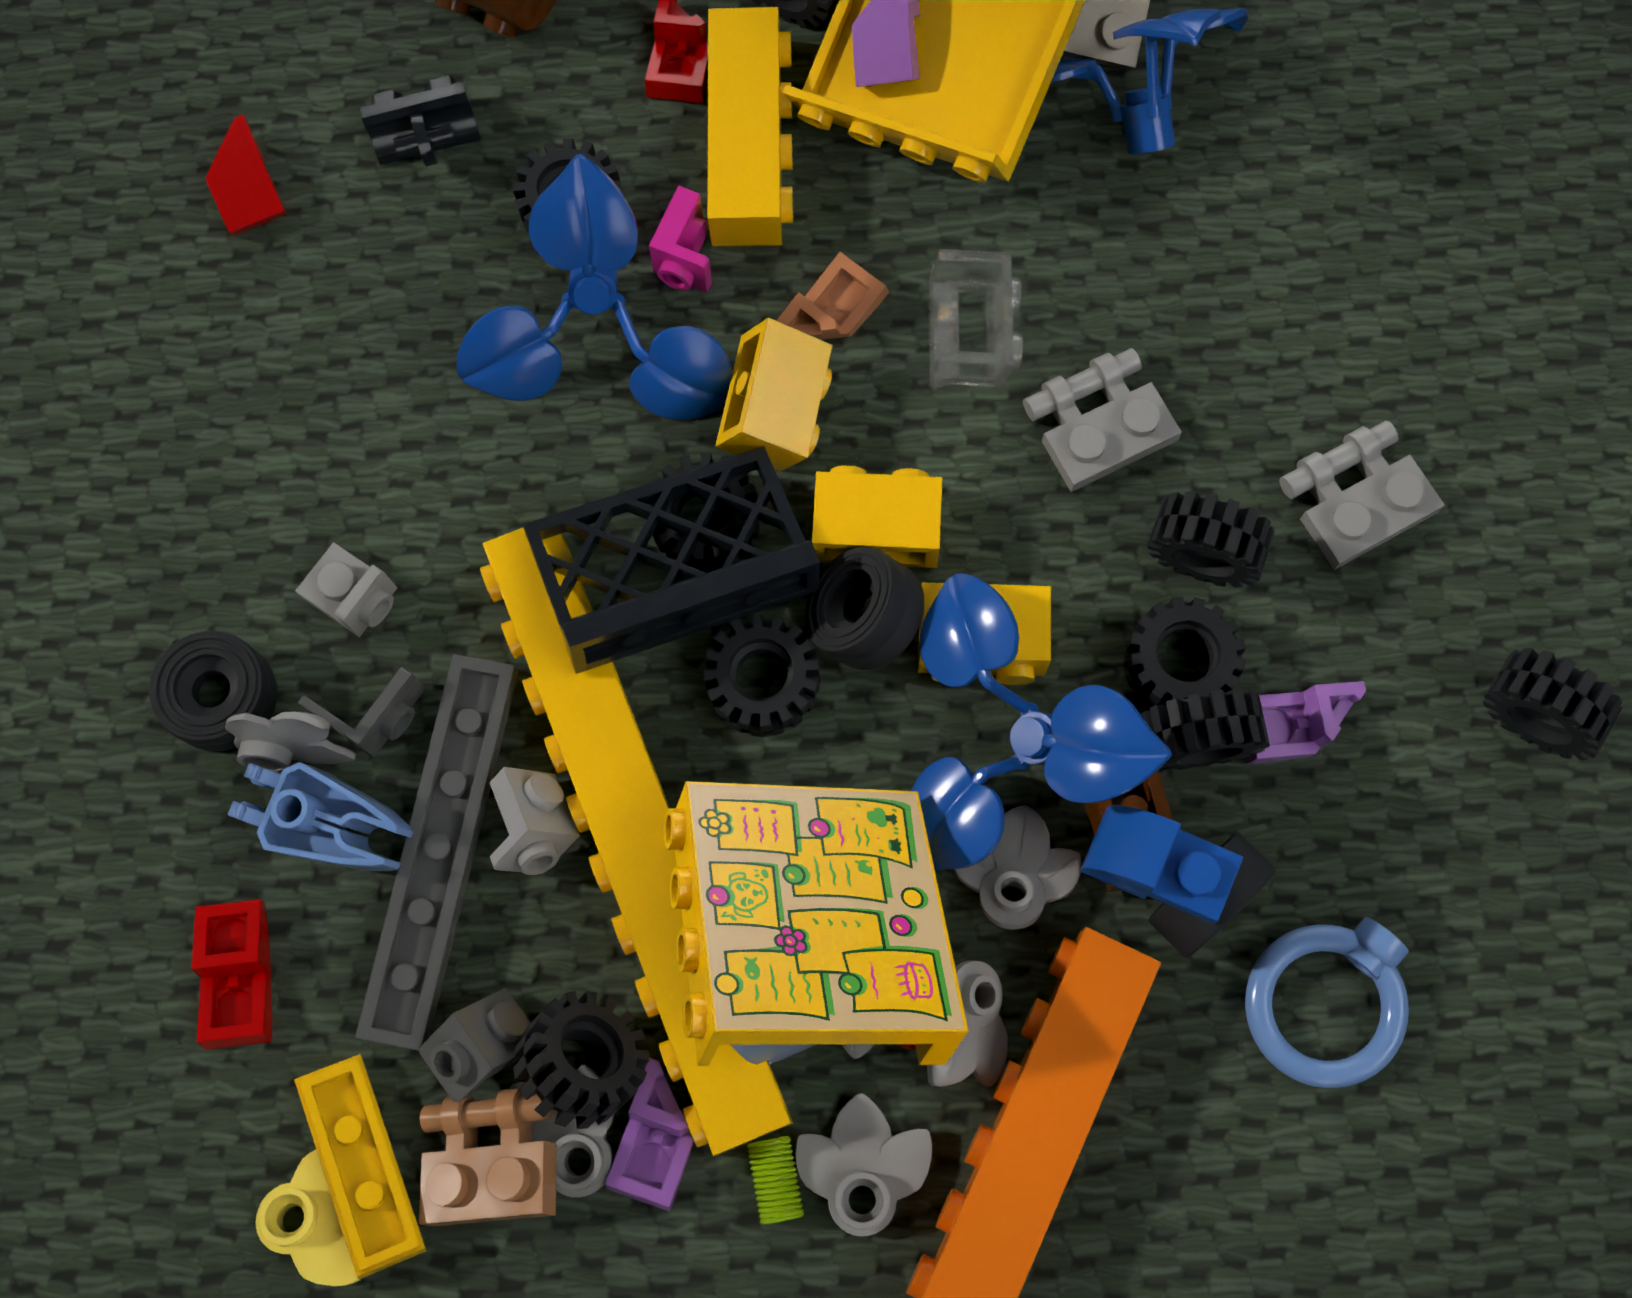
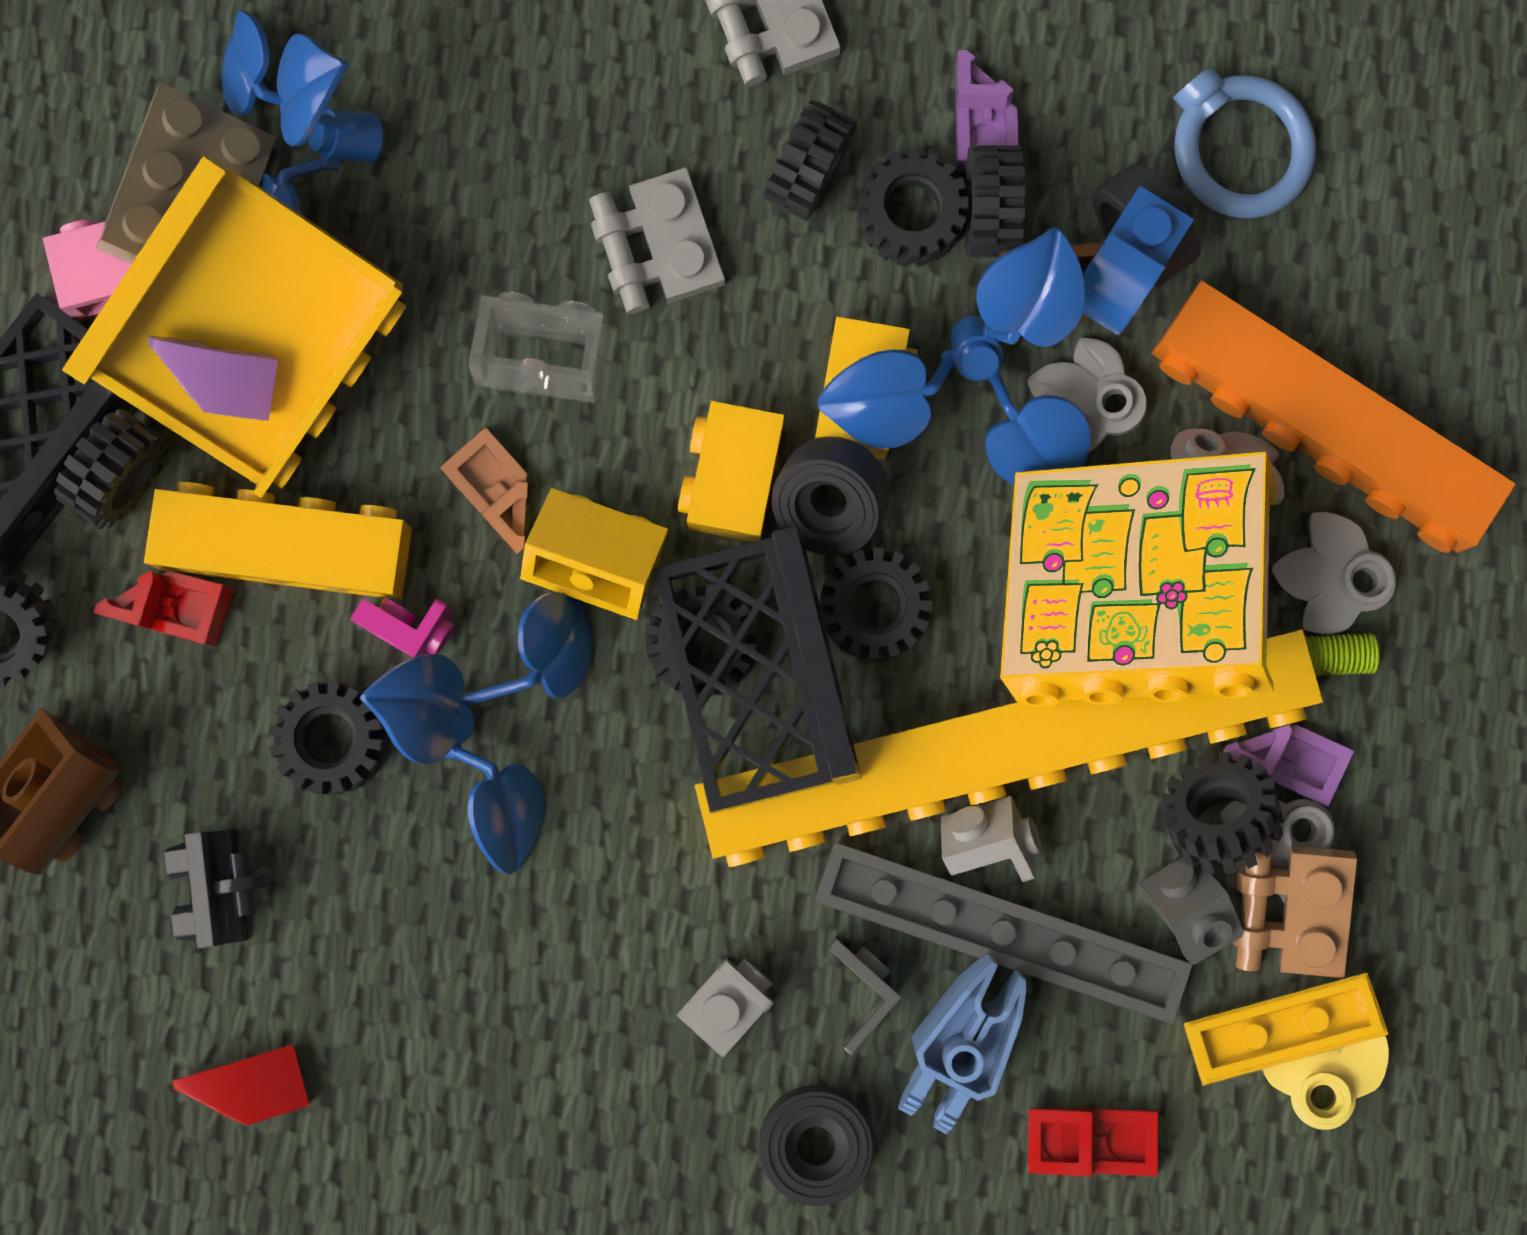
camera: 90 degrees left, 10 degrees up
(283, 739) = (881, 1084): light grey plate -> none

